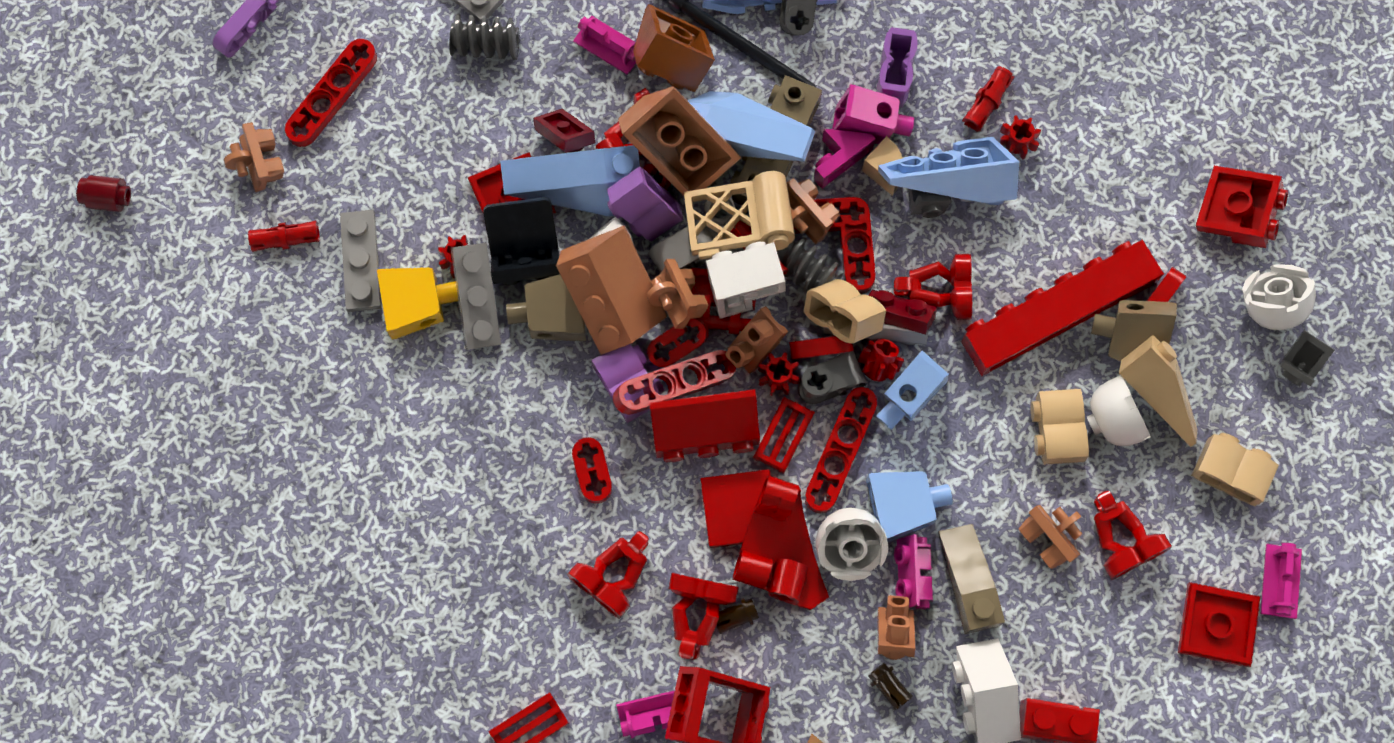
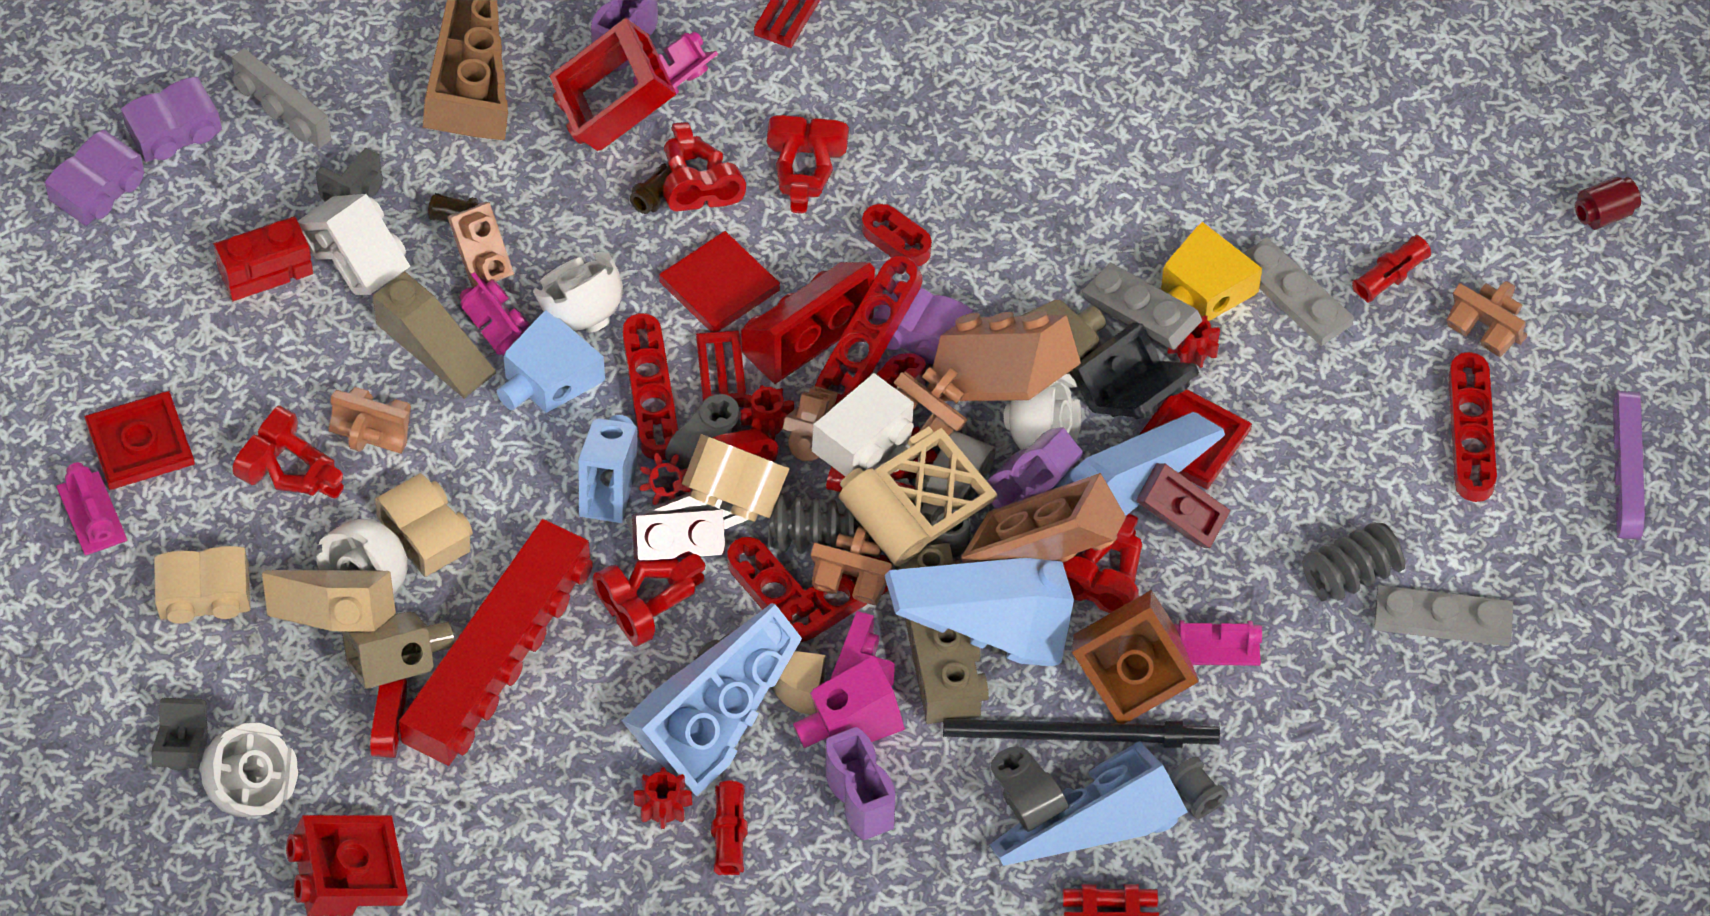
camera: 145 degrees right, 20 degrees down
(779, 549) = (648, 249): red panel -> none

